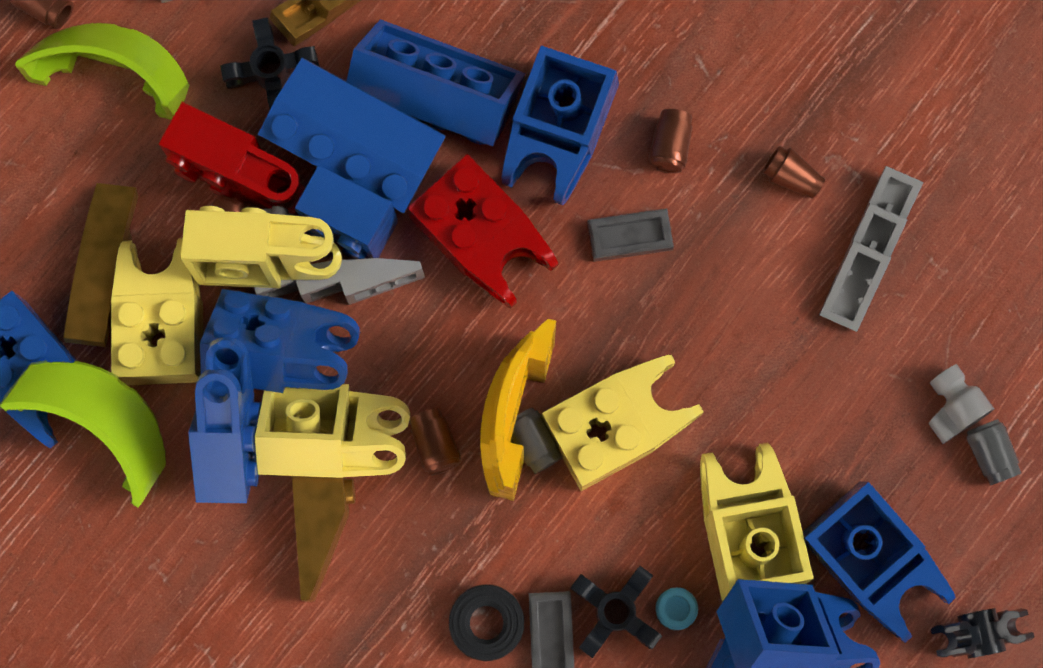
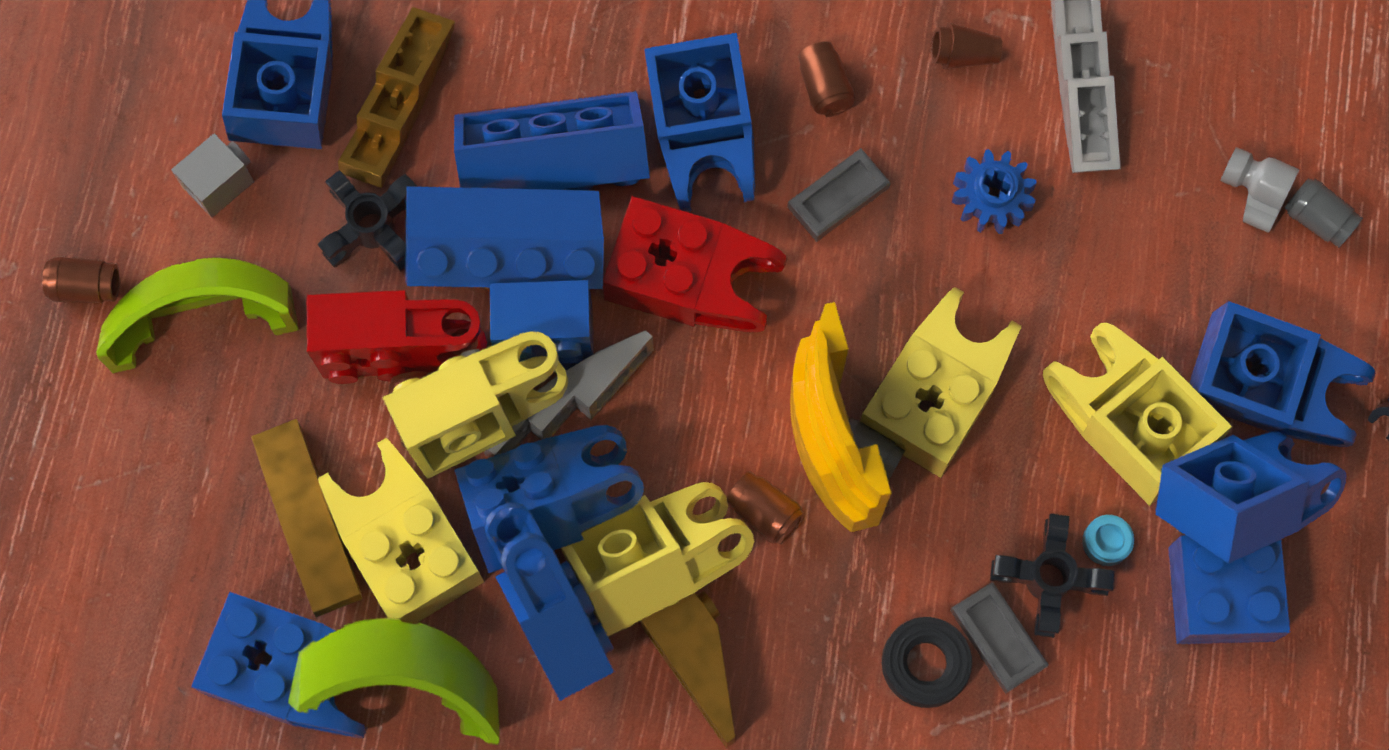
camera: 30 degrees left, 5 degrees down
(747, 281) = (1012, 194): none -> blue gear

